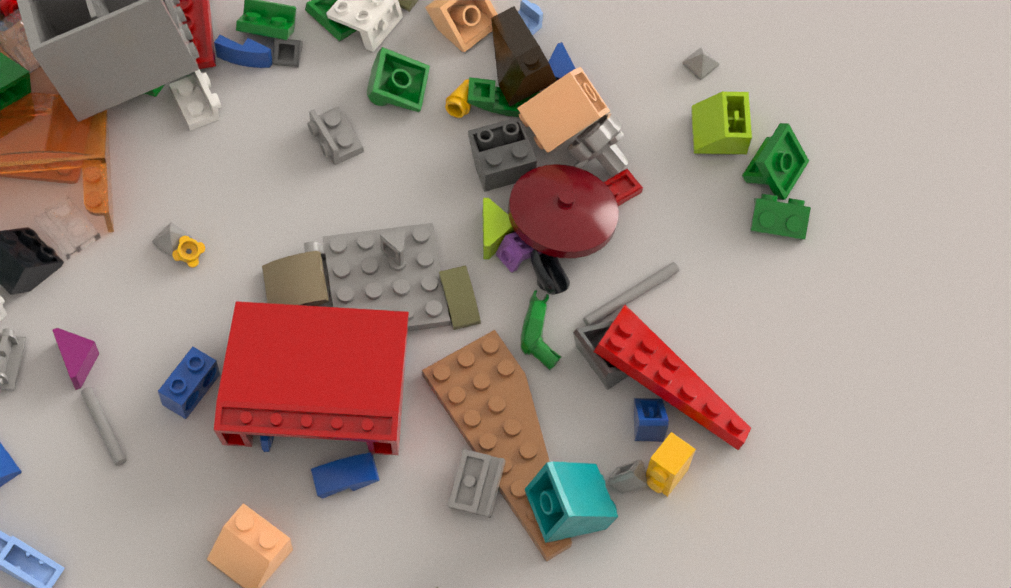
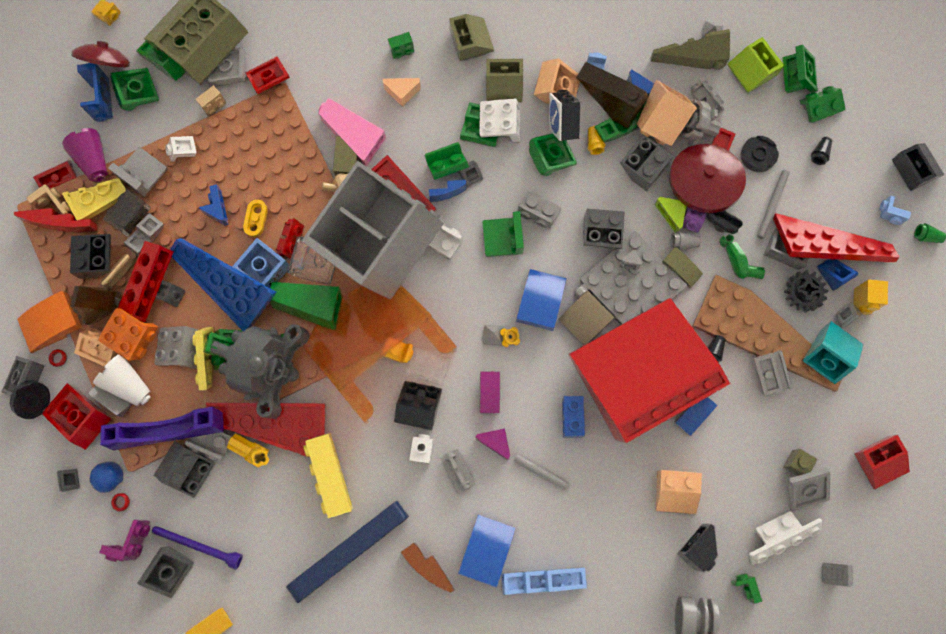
camera: 25 degrees left, 15 degrees up
(44, 187) = (401, 353): none -> yellow bracket
(113, 295) = (489, 392): none -> magenta slope
(257, 231) = (541, 300): none -> blue slope
(270, 137) = (503, 236): none -> green bracket
(394, 194) = (603, 228): none -> dark grey slope
(424, 416) = (717, 347): none -> black cone
(437, 42) = (564, 115): none -> black piece
(485, 269) = (684, 240): none -> light grey cone
(602, 424) = (812, 286): none -> black gear
(642, 137) = (703, 91): none -> light grey hinge
(657, 228) = (759, 154): none -> black tile
(667, 73) = (703, 53): none -> olive wedge
(738, 268) = (822, 151): none -> black cone
(777, 393) = (893, 214): none -> light blue bracket
(810, 445) = (928, 233): none -> green cone
(852, 353) = (917, 166): none -> black slope

